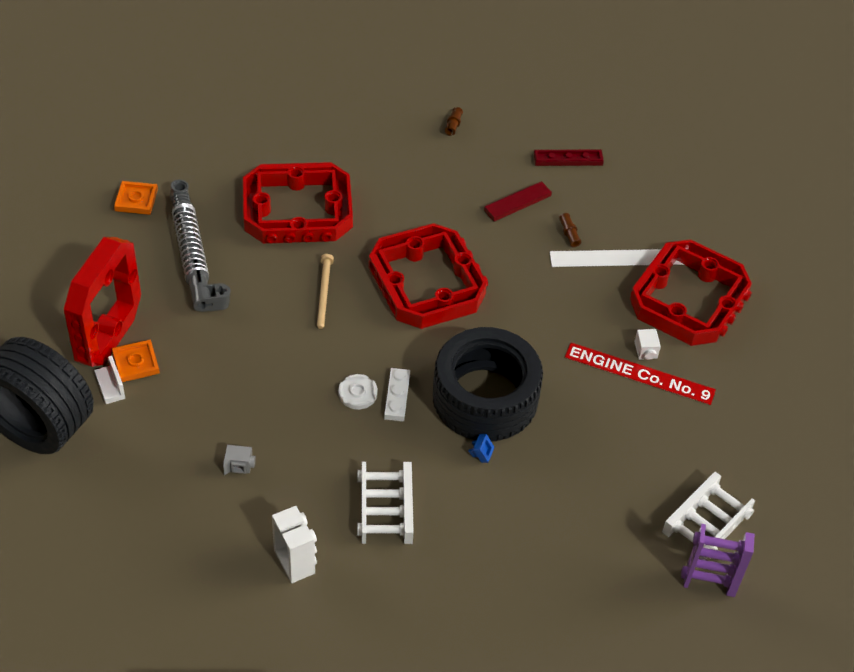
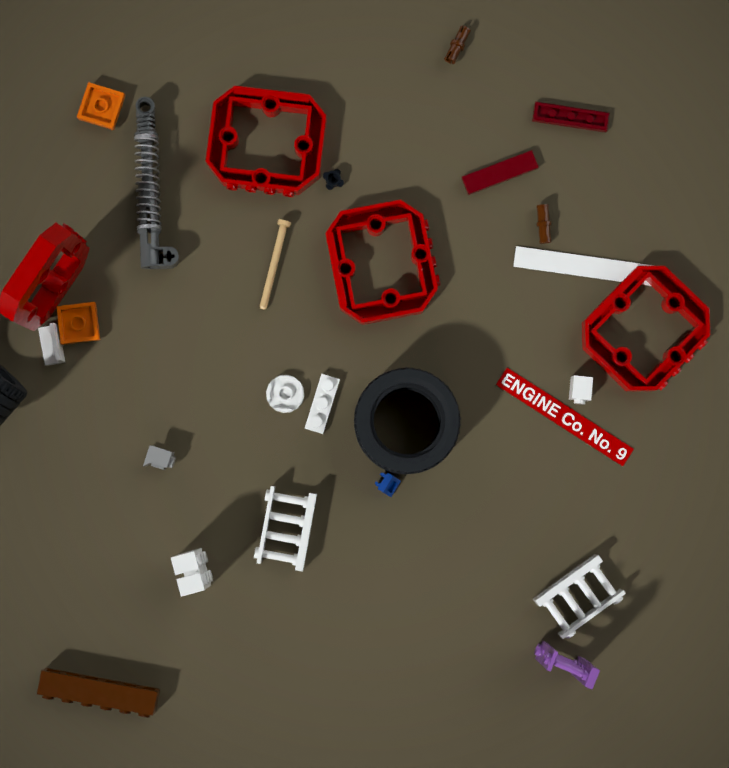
camera: 10 degrees right, 35 degrees up
(366, 223) = (333, 174): none -> black plate

